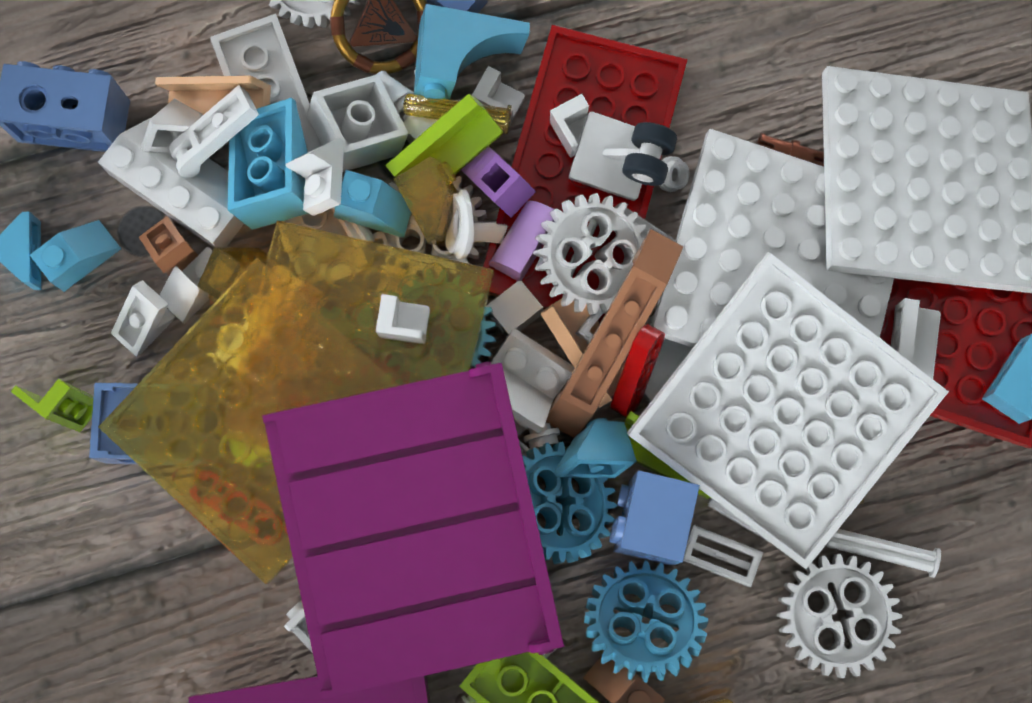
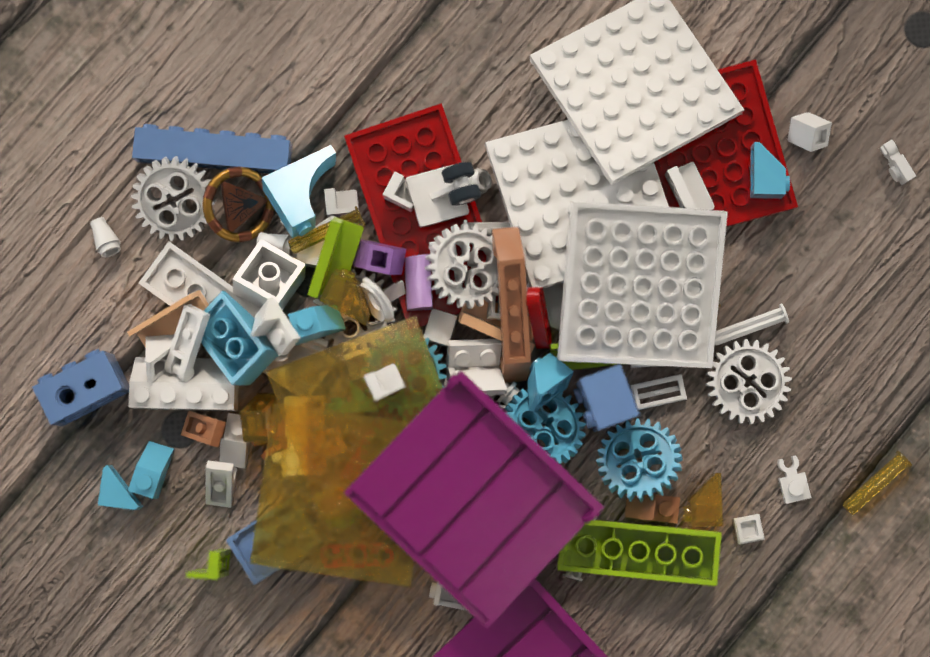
camera: 30 degrees left, 5 degrees up
(792, 148) = (541, 119): copper pin -> none

